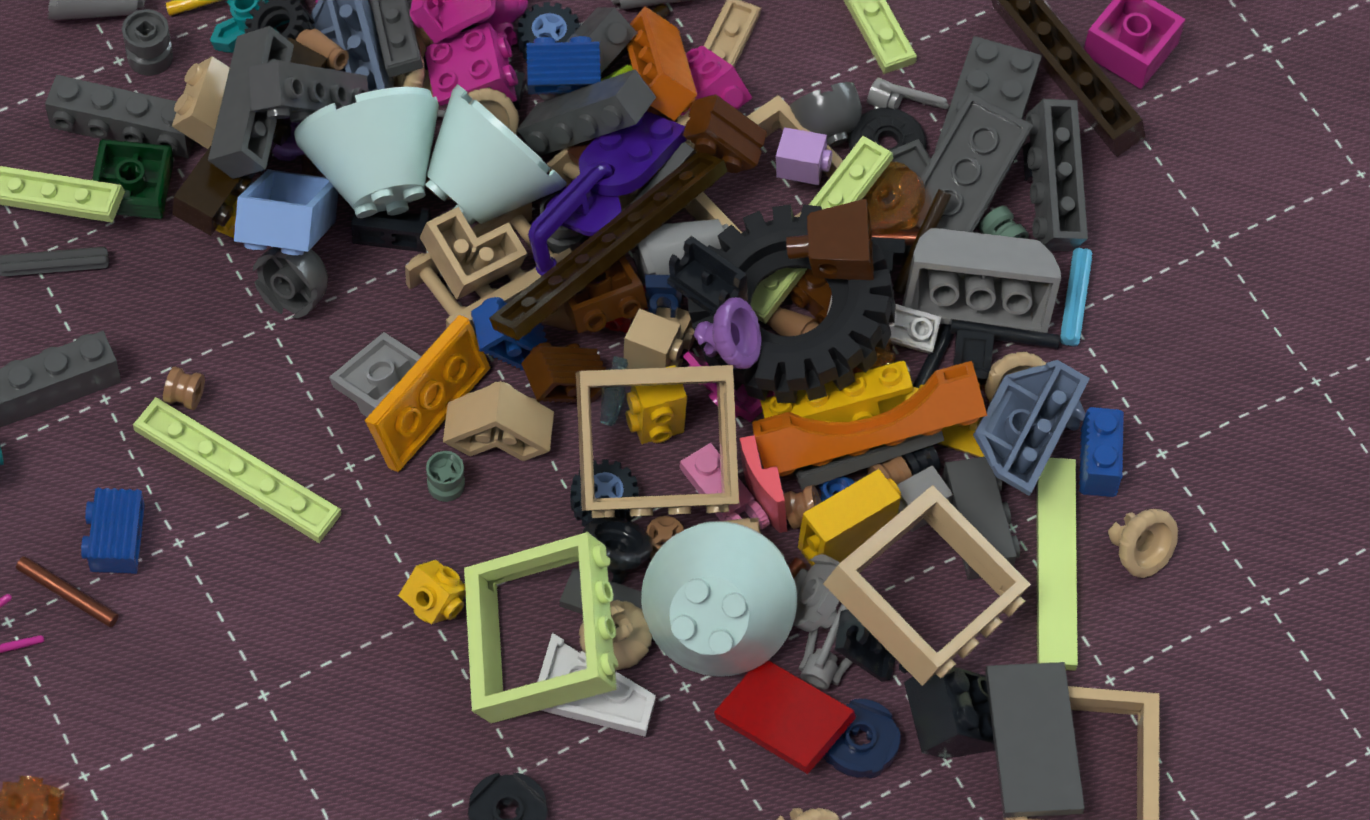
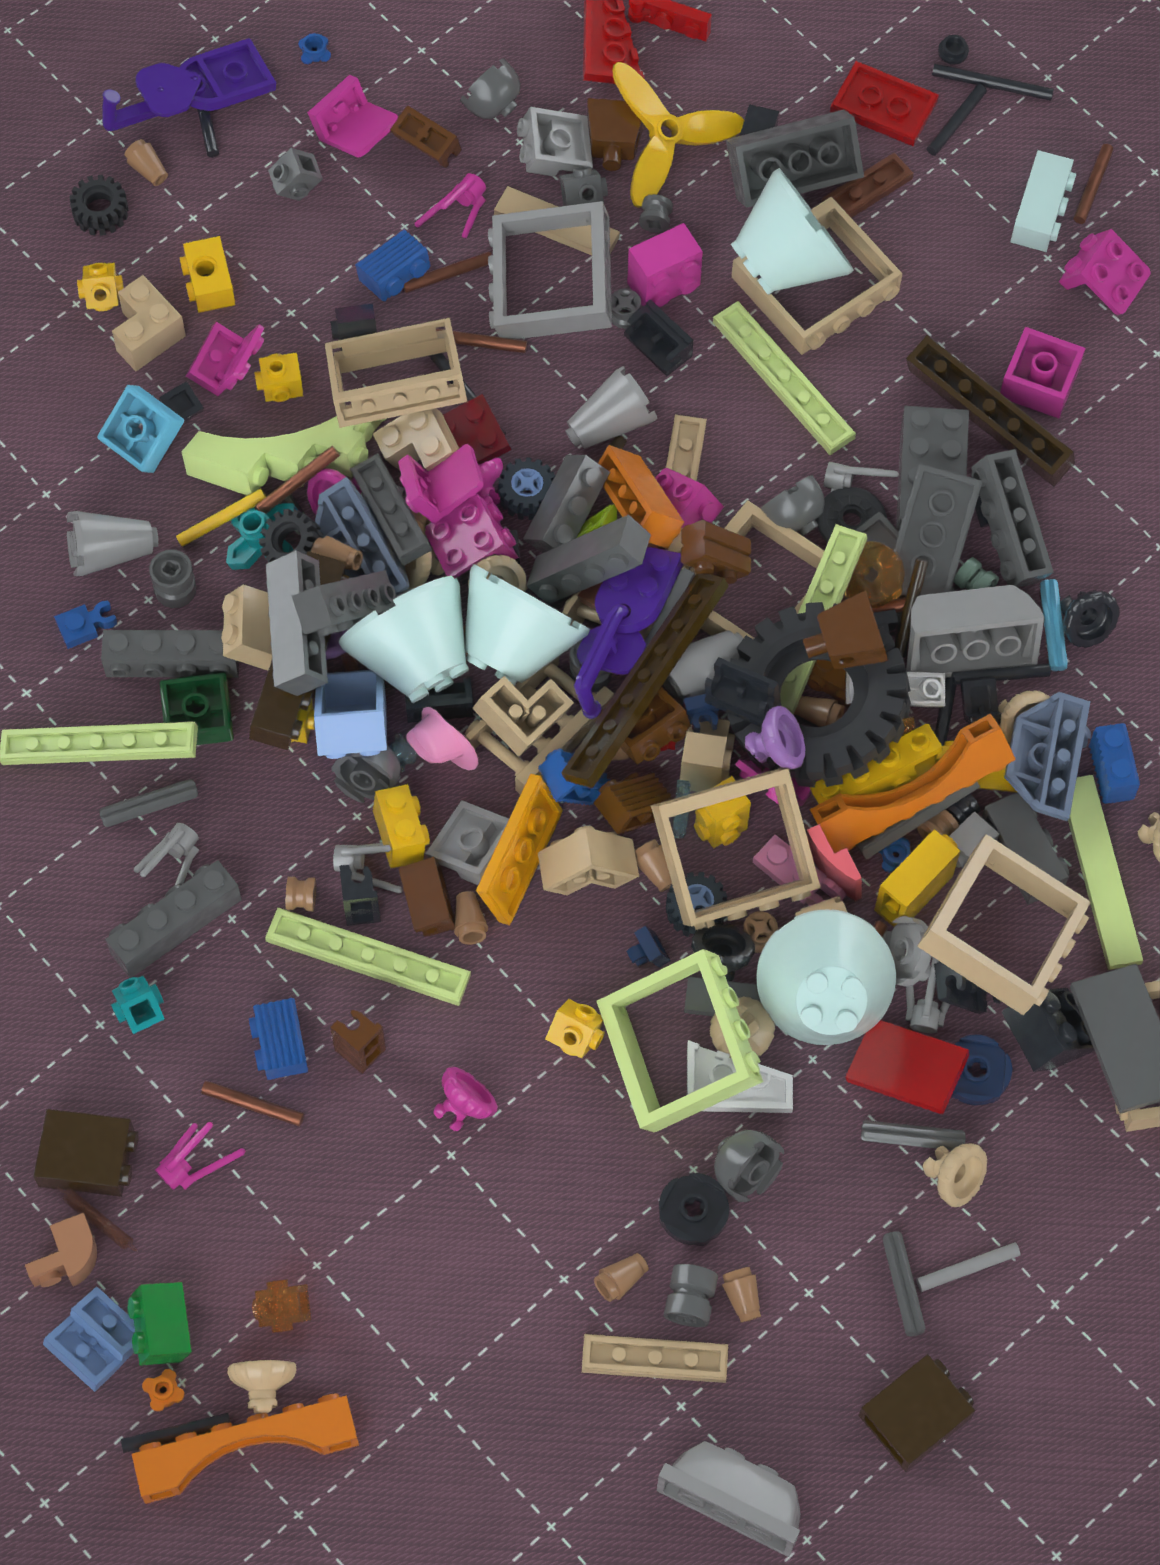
camera: 10 degrees left, 5 degrees up
(39, 69) = (80, 625): none -> blue plate
(69, 308) = (176, 843): none -> light grey plant
(197, 552) = (361, 1045): none -> reddish brown hinge
(240, 404) = (359, 899): none -> black hinge
(249, 364) = (354, 857): none -> light grey plant
(293, 635) = (464, 1098): none -> dark pink hair
(308, 342) = (399, 825): none -> yellow brick
(318, 422) = (427, 897): none -> reddish brown hinge
(337, 269) = (403, 750): none -> clear light blue plate
(355, 456) = (469, 919): none -> medium nougat cone
(377, 266) = (440, 742): none -> bright pink piece
(442, 468) = (554, 912): sand green wheel -> none
(539, 528) = (649, 949): none -> dark blue tile
(562, 65) = (556, 521): blue brick -> none
(566, 441) = (653, 864): none -> medium nougat cone
(579, 777) = (747, 1163): none -> dark grey cylinder
(767, 789) = (911, 1135): none -> dark grey axle
(799, 503) = (872, 873): medium nougat wheel -> none
(802, 156) = (787, 554): lavender brick -> none
(1116, 296) = (1089, 617): none -> black hair

